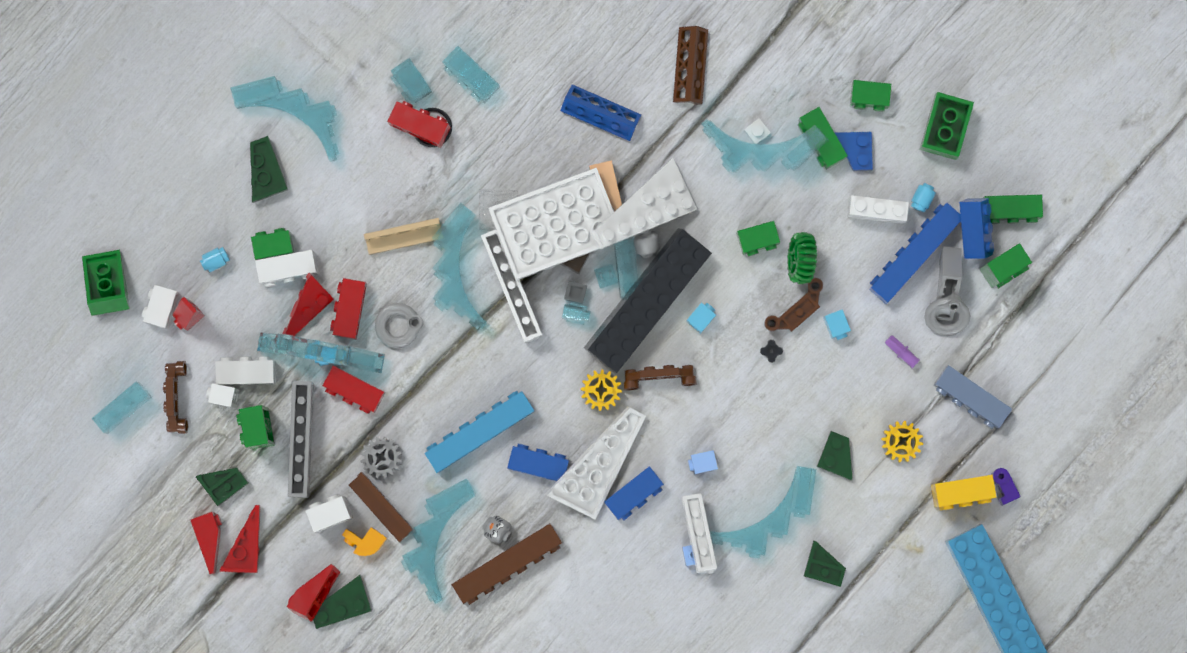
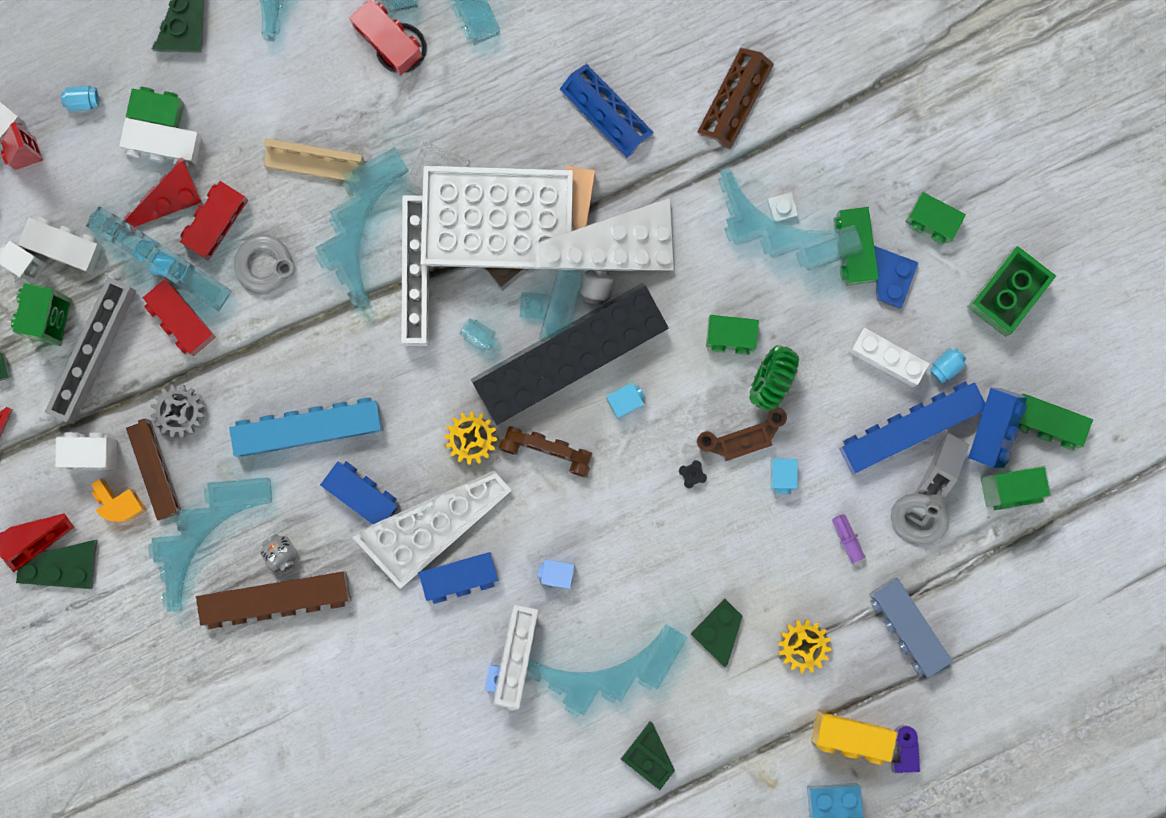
camera: 20 degrees right, 0 degrees up
(575, 292) = (488, 309): dark grey plate -> none

